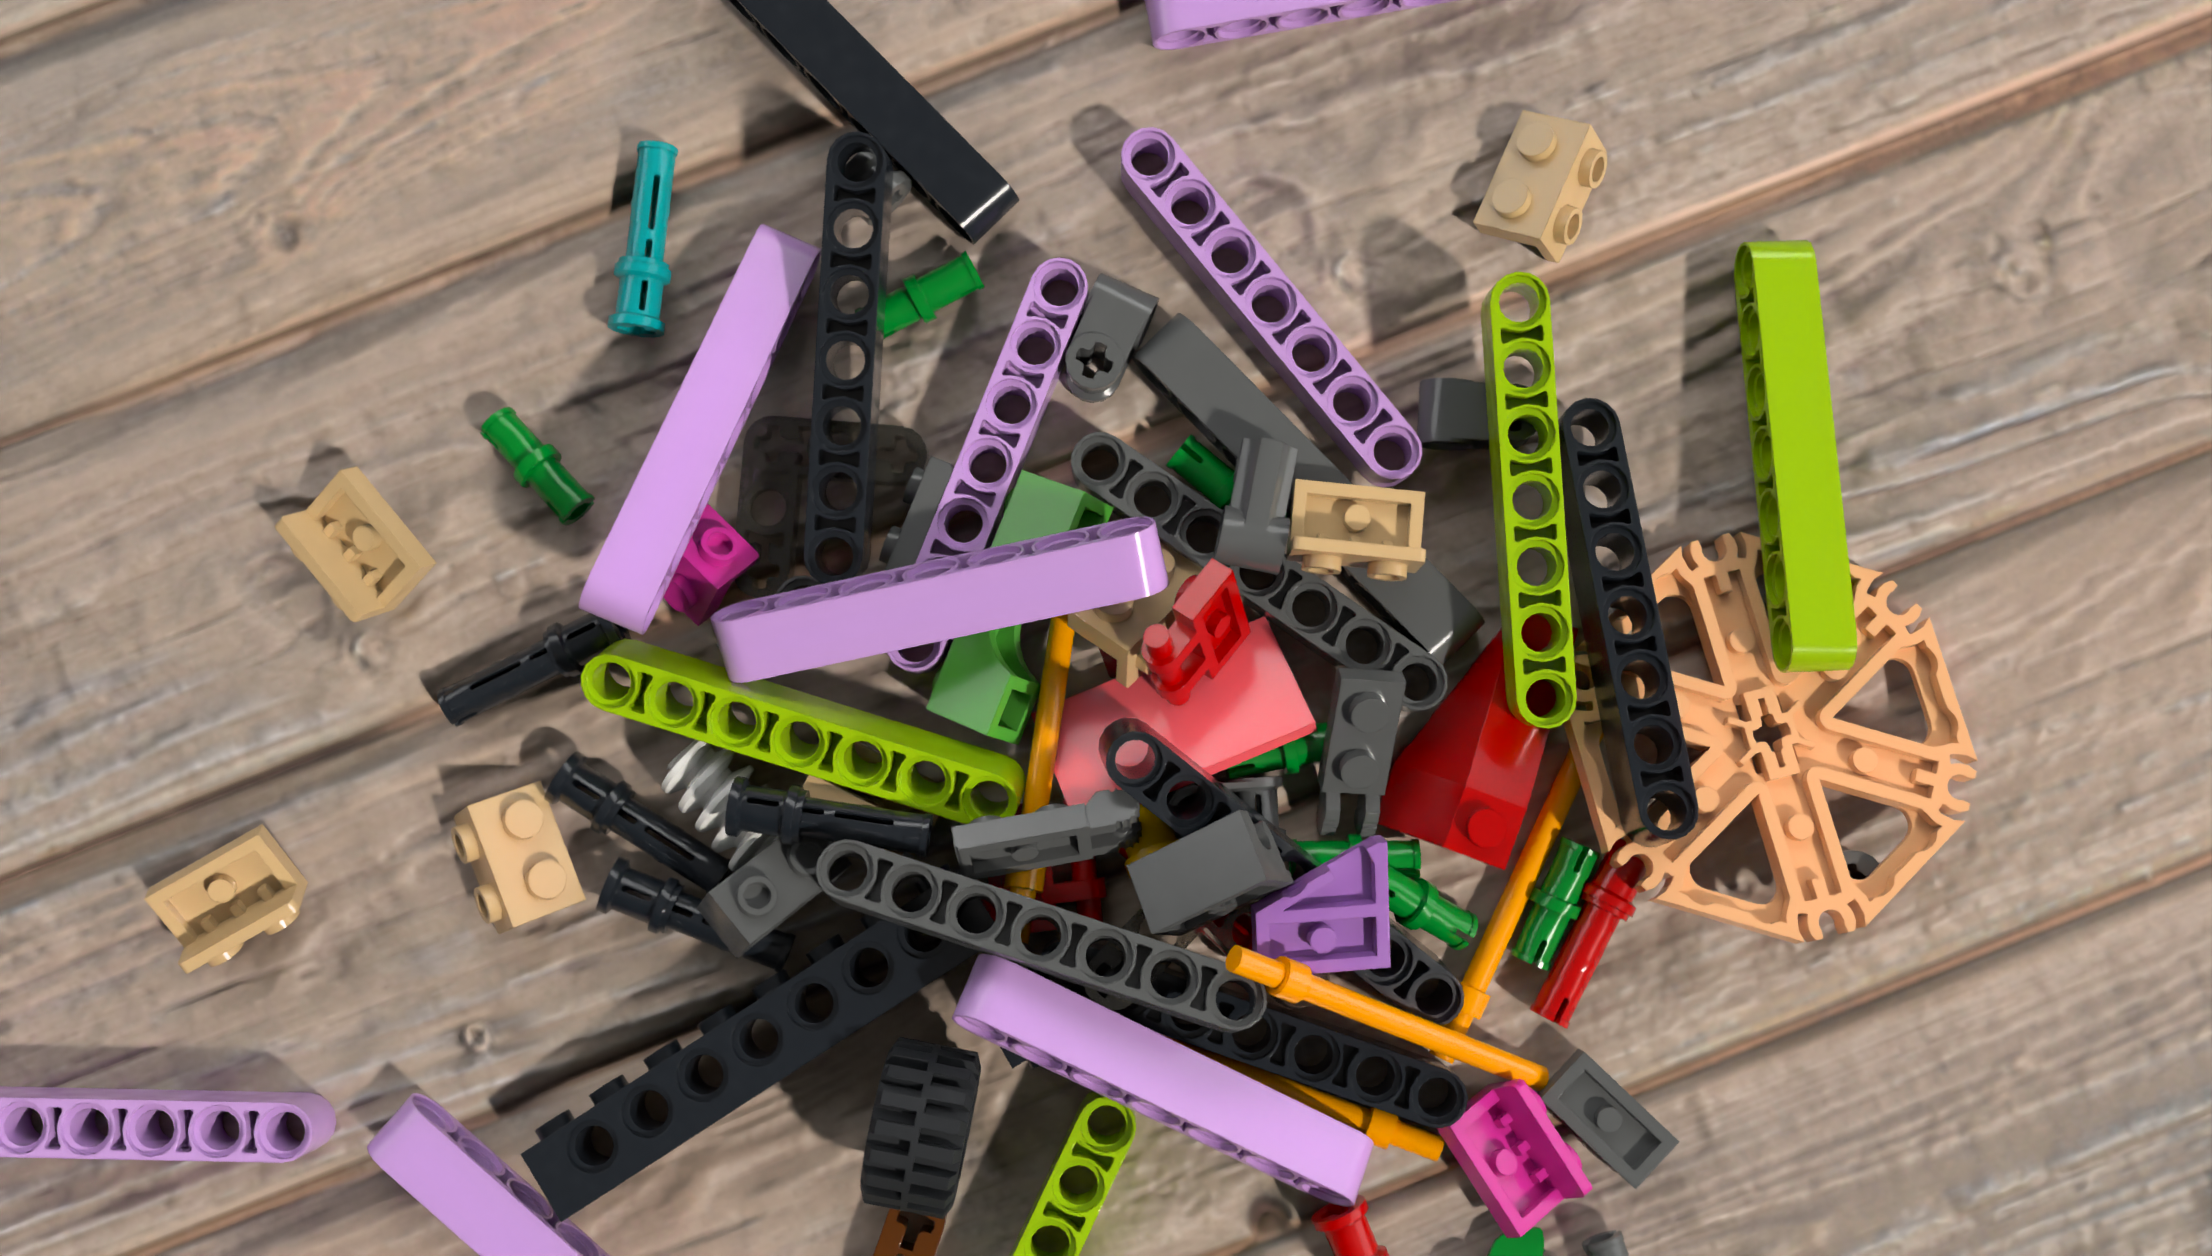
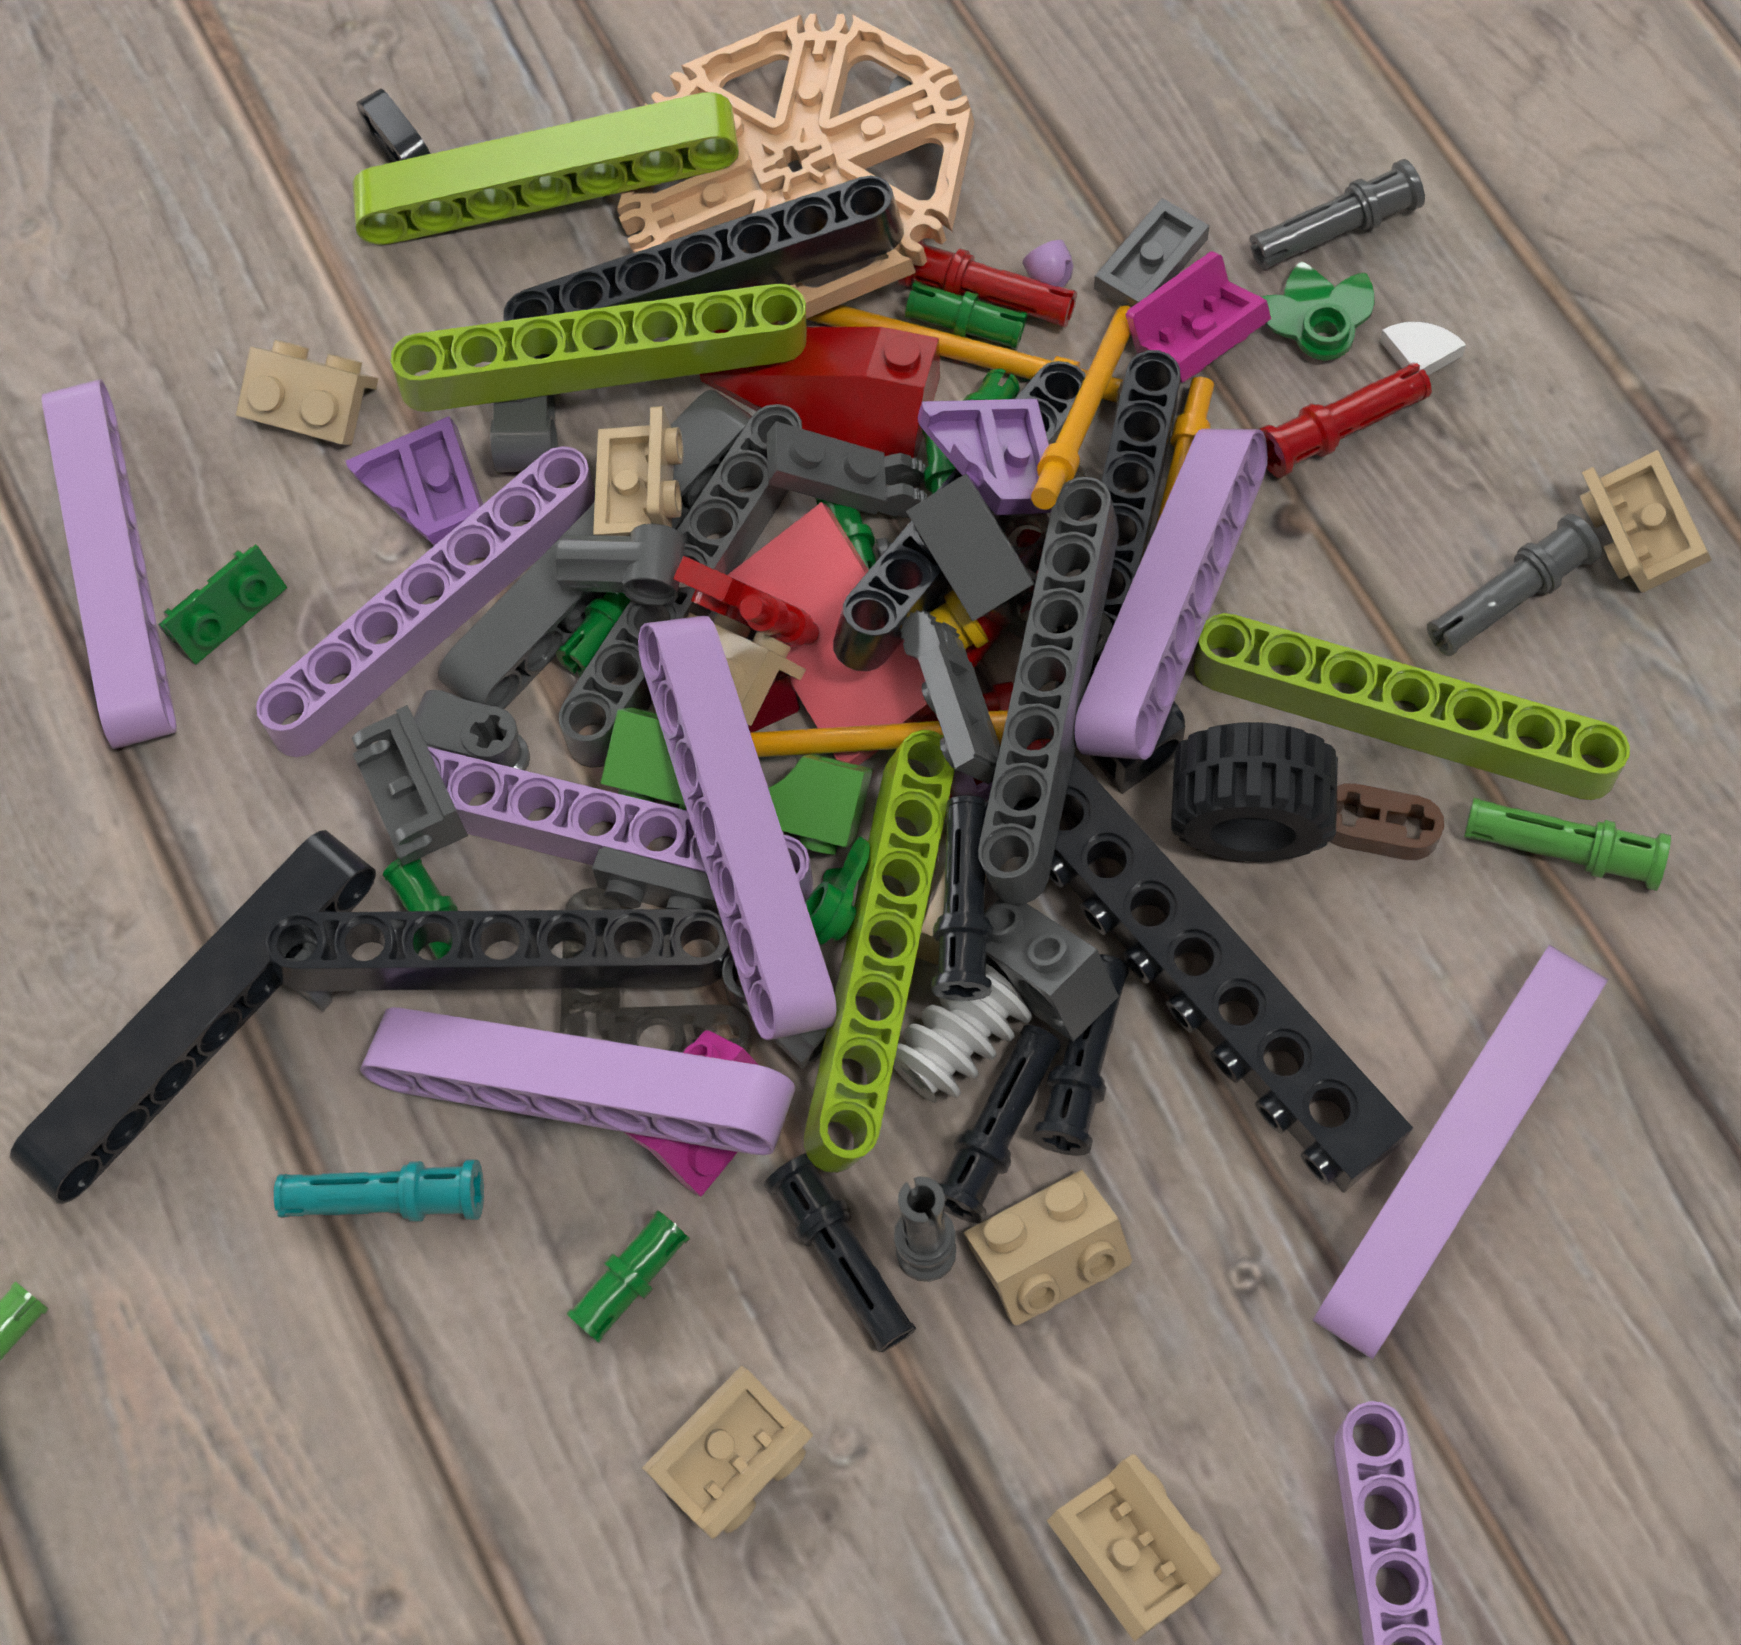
camera: 90 degrees left, 20 degrees down
(516, 743) = (924, 1232): none -> dark grey pin
(870, 689) = (831, 900): none -> green plate
(1030, 279) = (407, 786): none -> dark grey hinge
(1278, 75) = (223, 604): none -> green hinge
(1415, 310) = (422, 478): none -> medium lavender wing
(1607, 1004) = (1050, 263): none -> lavender hinge
(1873, 288) = (390, 127): none -> beam

